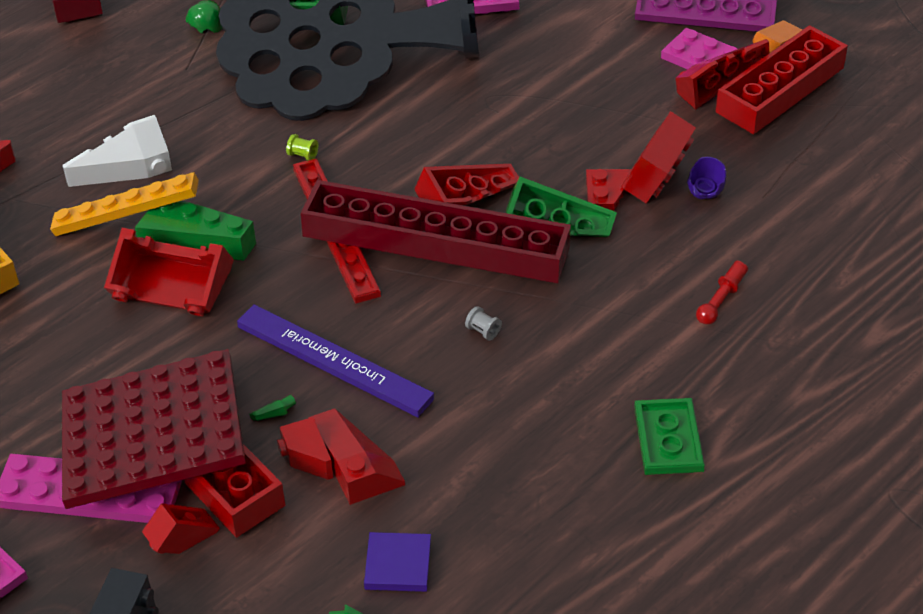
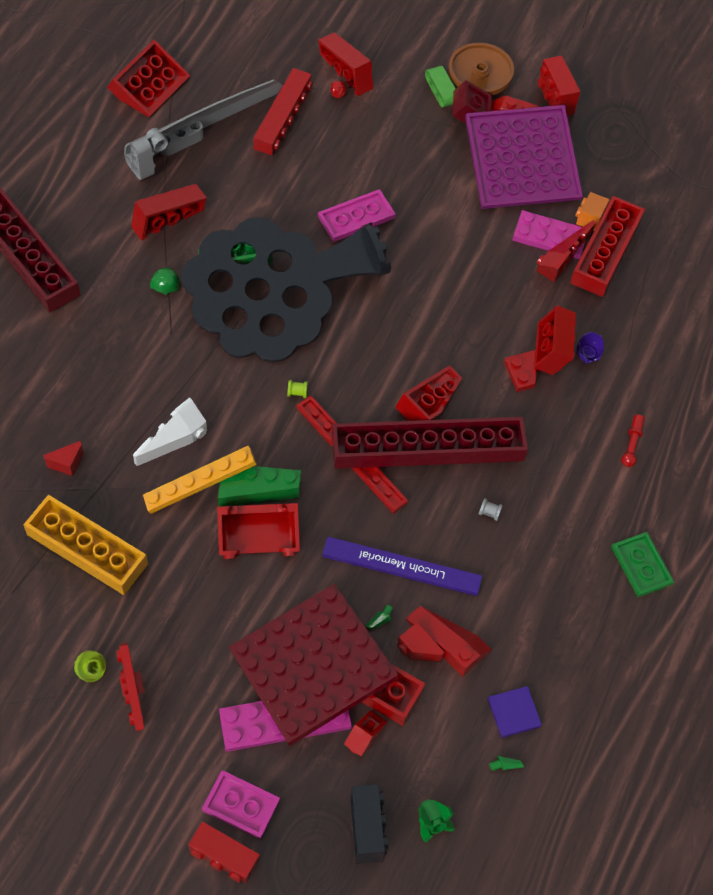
camera: 25 degrees left, 15 degrees up
(548, 204) = (500, 402): green wedge -> none

